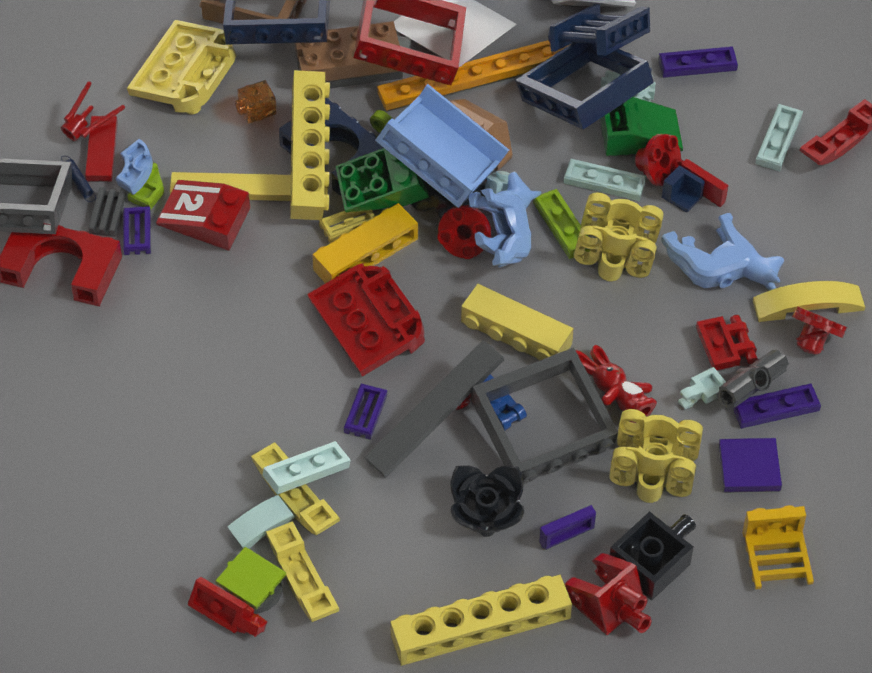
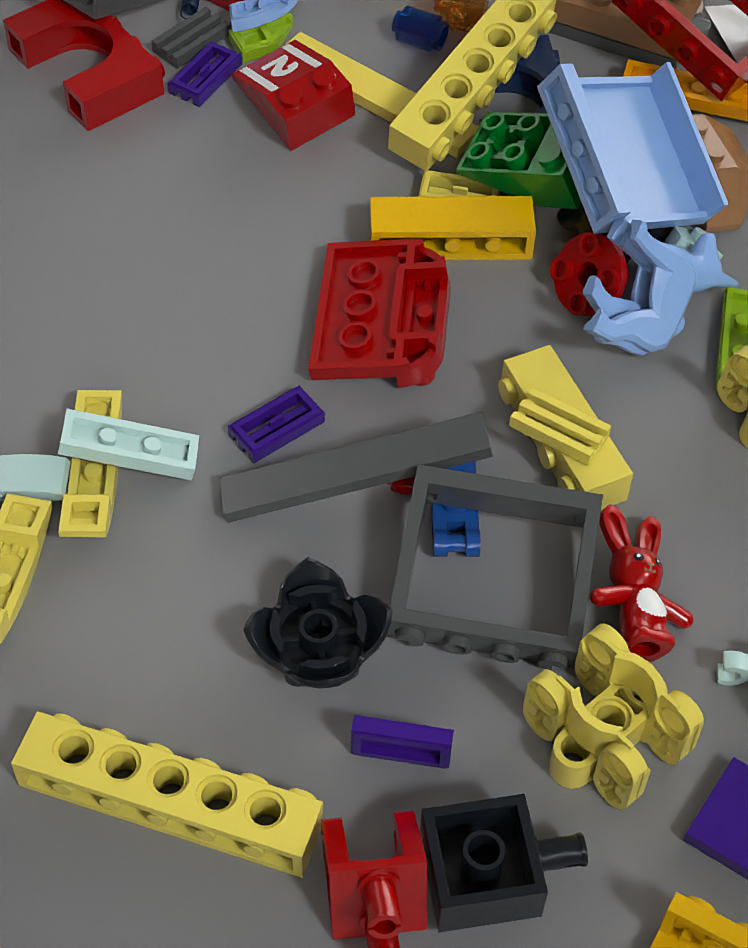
camera: 35 degrees right, 0 degrees up
(241, 131) = (420, 28): none -> clear blue brick
(519, 321) = (563, 421): none -> light yellow tile

